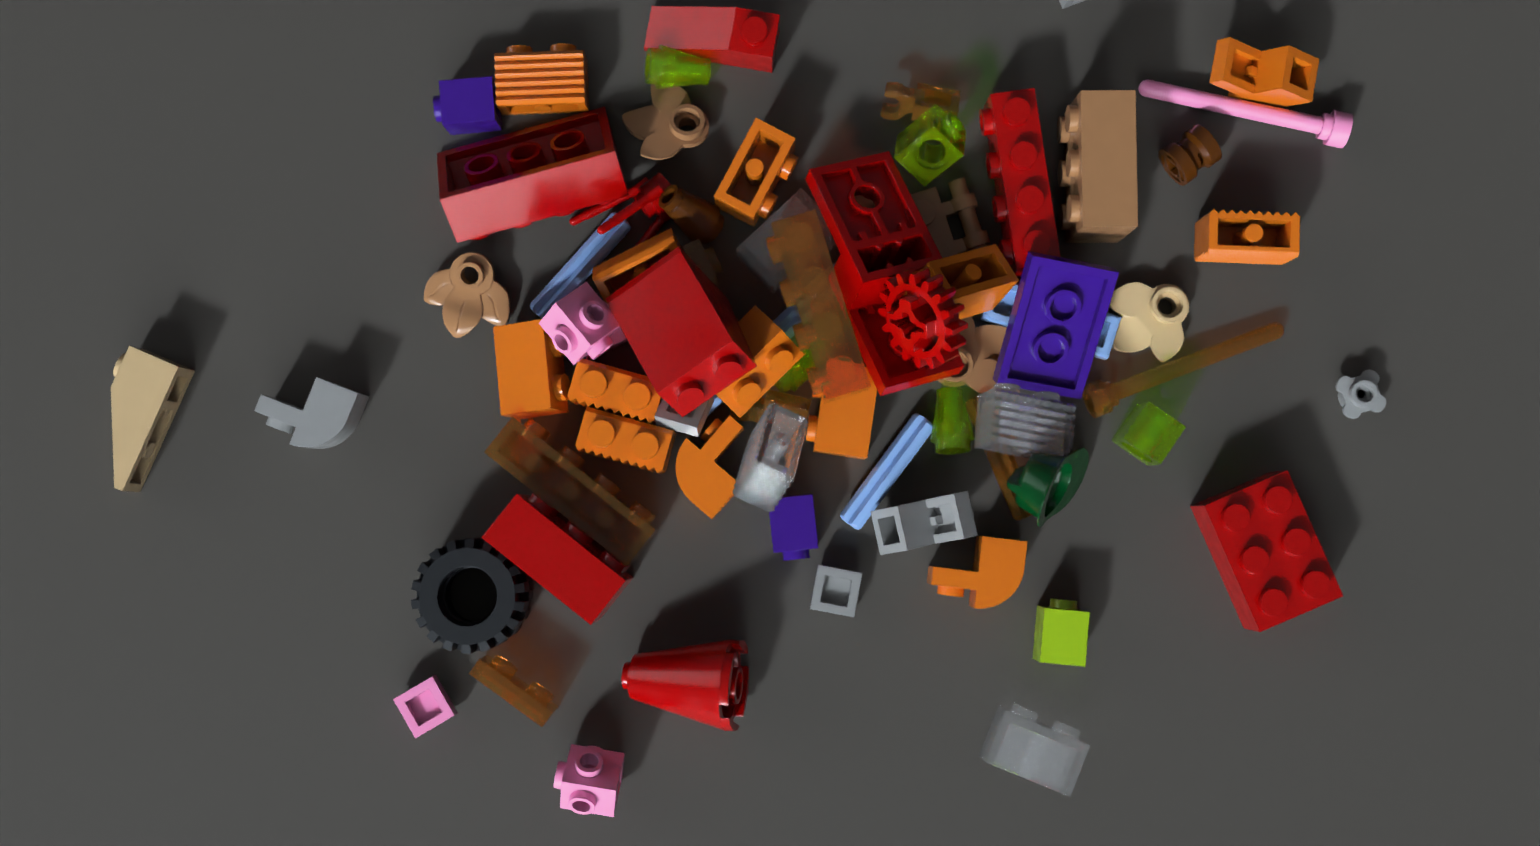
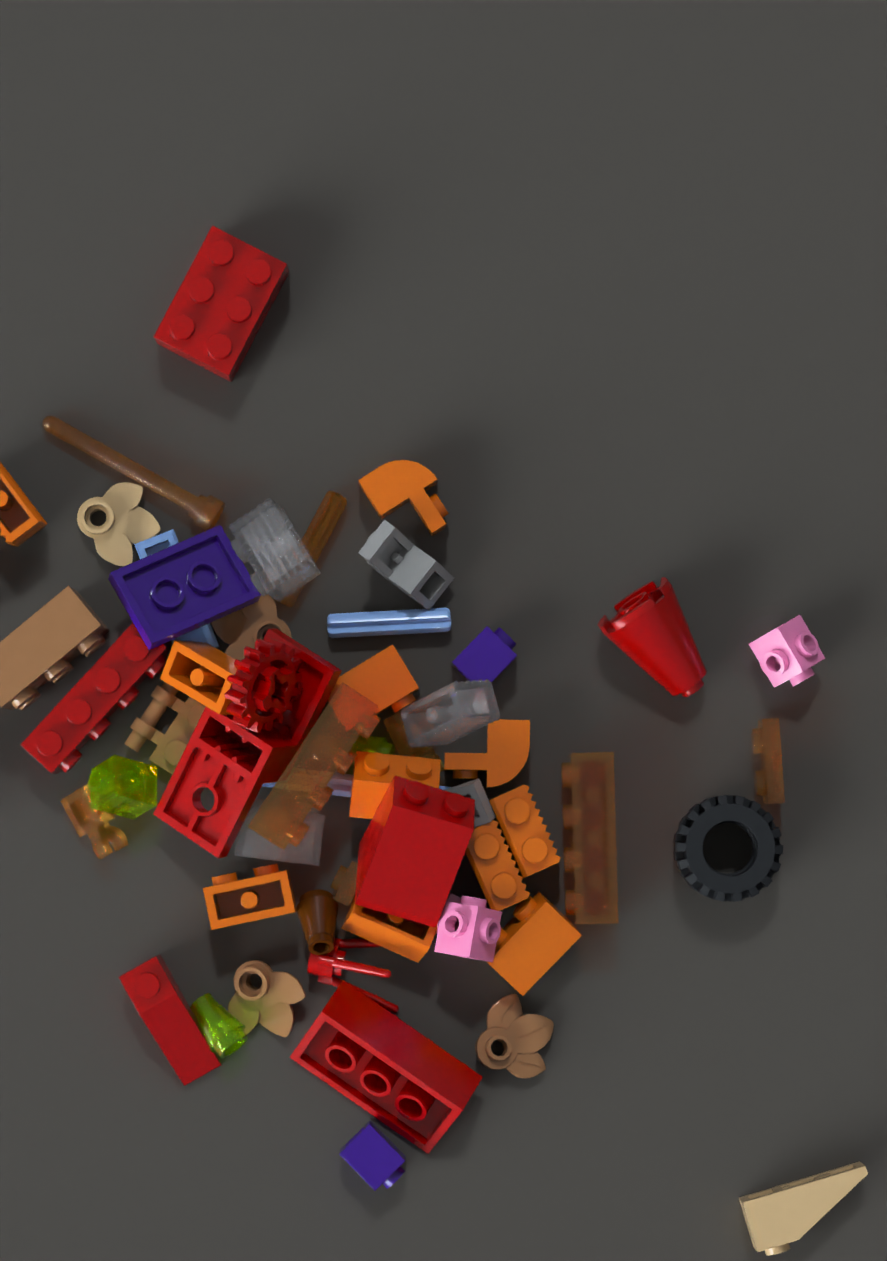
camera: 135 degrees left, 0 degrees up
(325, 421) = (693, 1064): light grey brick -> none
(425, 706) = (836, 816): bright pink plate -> none
(541, 80) = (309, 1118): orange brick -> none
(558, 556) = (647, 806): red brick -> none
(579, 266) = (429, 974): light blue axle -> none
(835, 590) = (506, 588): light grey plate -> none
(951, 423) = (315, 604): clear neon green cone -> none
(1034, 749) = (502, 354): clear brick -> none
(1048, 482) = (302, 498): dark green piece -> none
(1061, 633) = (403, 401): lime brick -> none
(1148, 433) = (206, 455): clear neon green brick -> none
(1349, 400) = (52, 336): light grey plate -> none

